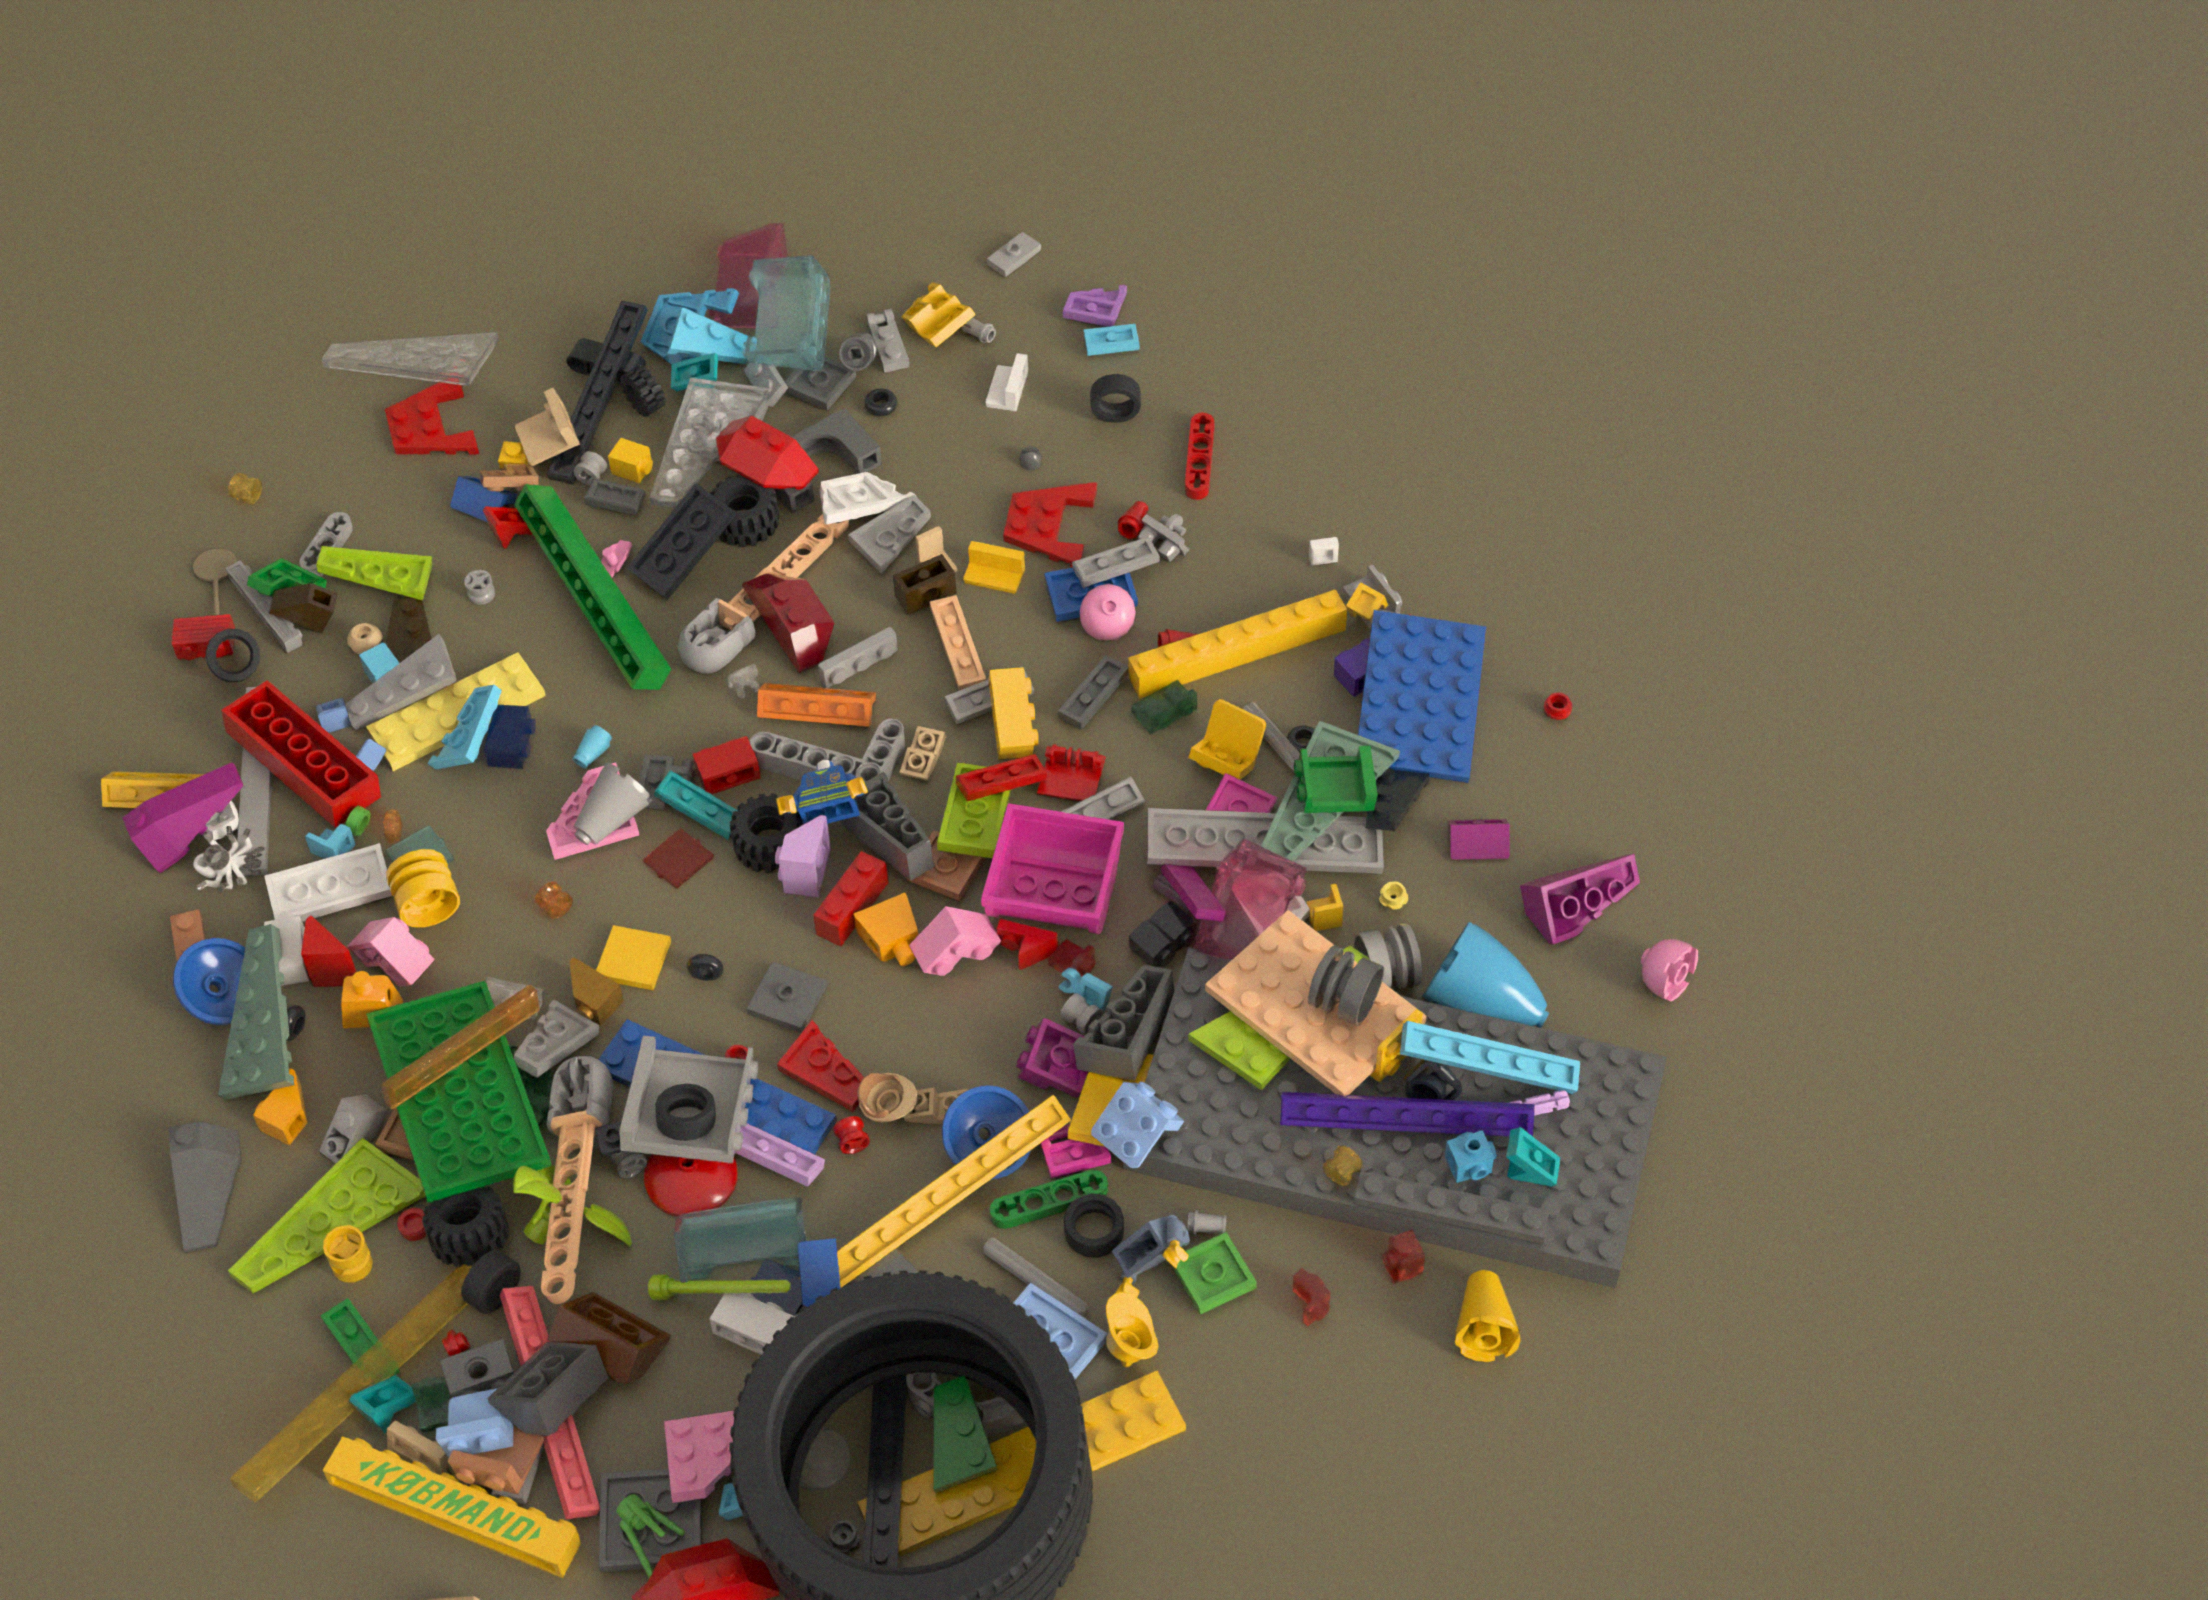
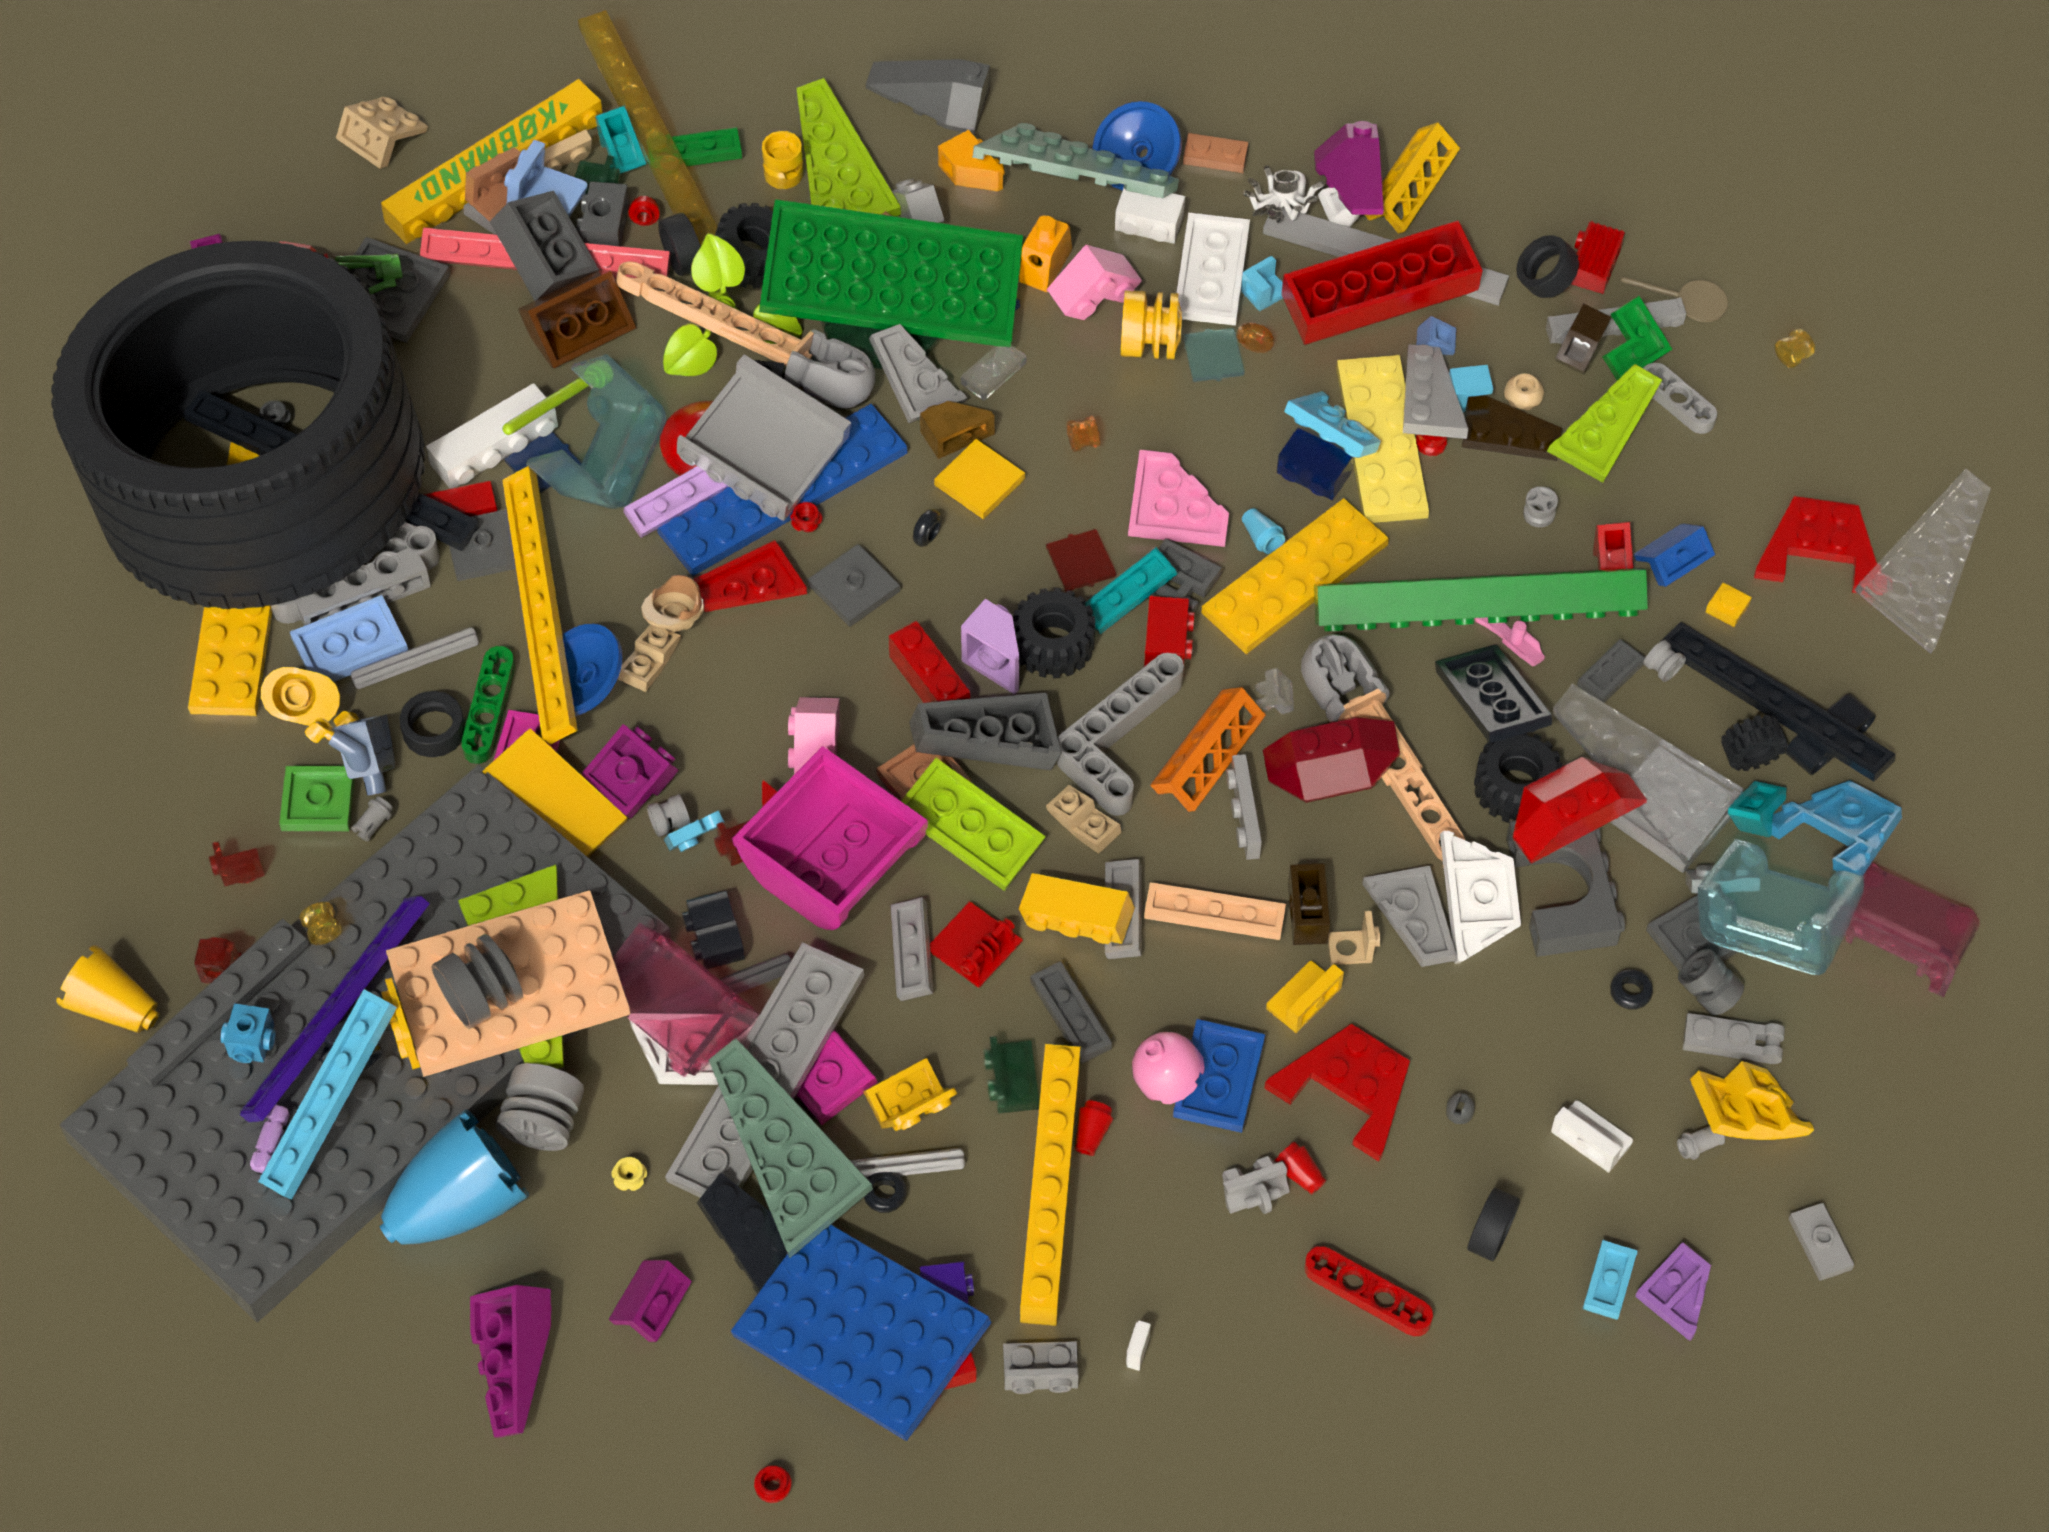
camera: 115 degrees right, 5 degrees up
(296, 1021) = (1065, 195): black piece -> none
(325, 956) = (1119, 226): red slope -> none
(358, 820) = (1278, 312): bright green tile -> none
(371, 754) = (1355, 342): medium blue slope -> none
(460, 1047) = (925, 280): clear orange tile -> none
(512, 476) = (1670, 575): medium nougat plate -> none
(548, 431) = (1731, 629): tan bracket -> none
(609, 805) = (1157, 502): light grey cone -> none
(623, 713) = (1285, 579): none -> yellow plate
(630, 460) = (1657, 702): yellow brick -> none
(689, 1127) = (750, 402): black tyre -> none
(698, 1454) = (422, 344): bright pink plate -> none
(703, 336) = (1807, 829): medium azure wing -> none
(817, 1269) = (511, 471): blue panel -> none
(825, 793) = (1043, 669): blue torso -> none
(851, 1135) = (658, 569): red wheel -> none
(889, 929) = (872, 694): light orange torso -> none
(1001, 777) = (996, 863): red tile -> none
(1115, 562) = (1236, 1109): light grey tile -> none
(1129, 1026) = (614, 835): dark grey wedge -> none
(1134, 1122) = (490, 778): light blue bracket -> none
(1193, 892) = (723, 954): magenta tile -> none
(1327, 911) = (649, 1097): yellow panel -> none
(1336, 782) = (776, 1152): green panel -> none
(1365, 601) = (1018, 1333): yellow panel -> none
(1531, 1159) = (210, 1090): teal slope -> none
(1667, 967) = (359, 1380): bright pink cylinder -> none

